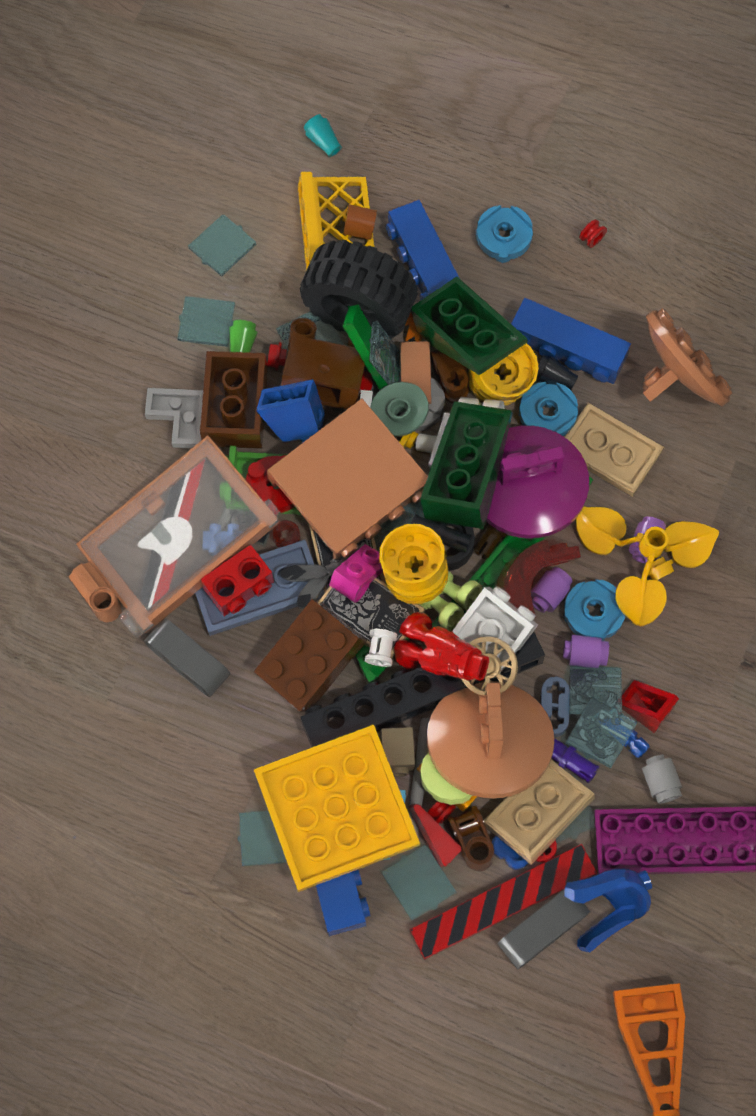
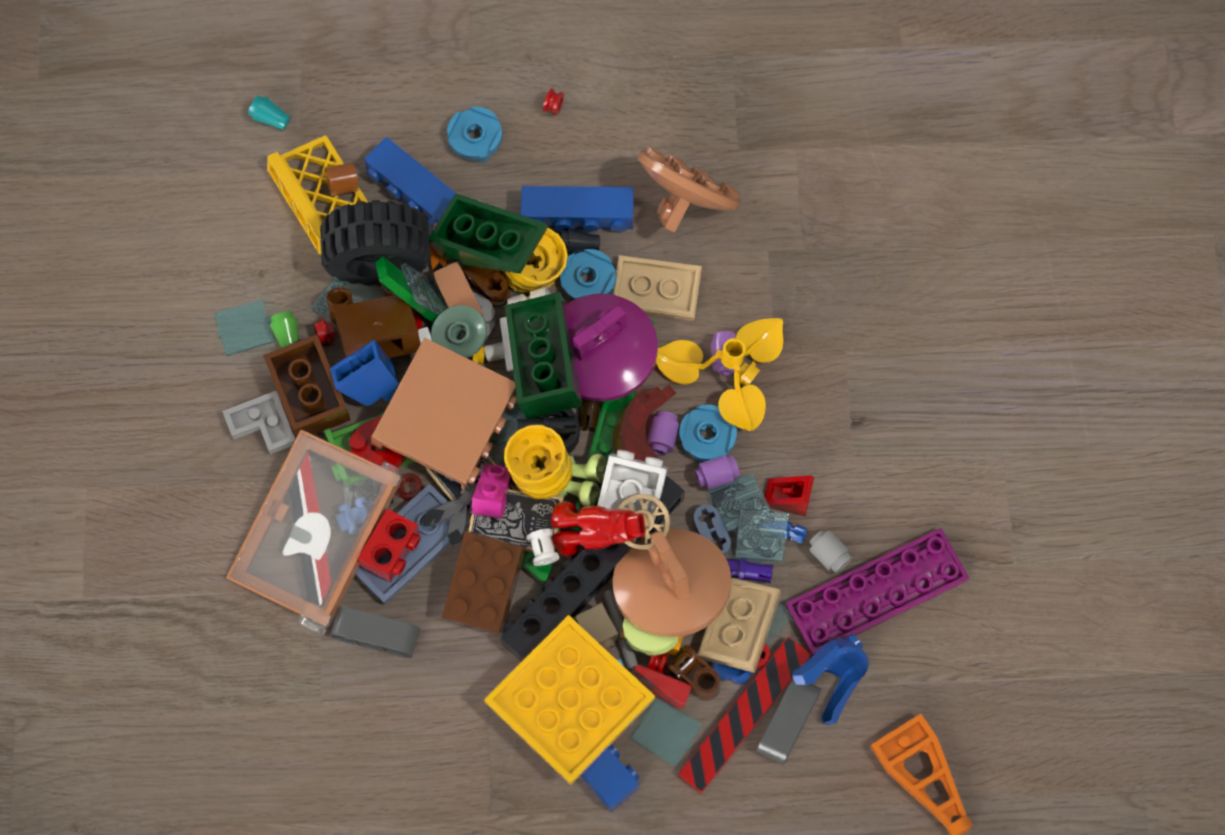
camera: 25 degrees left, 0 degrees up
(95, 592) = (264, 612): nougat piece -> none
(222, 245) = (224, 252): clear light blue piece -> none
(259, 840) = (515, 758): clear light blue piece -> none

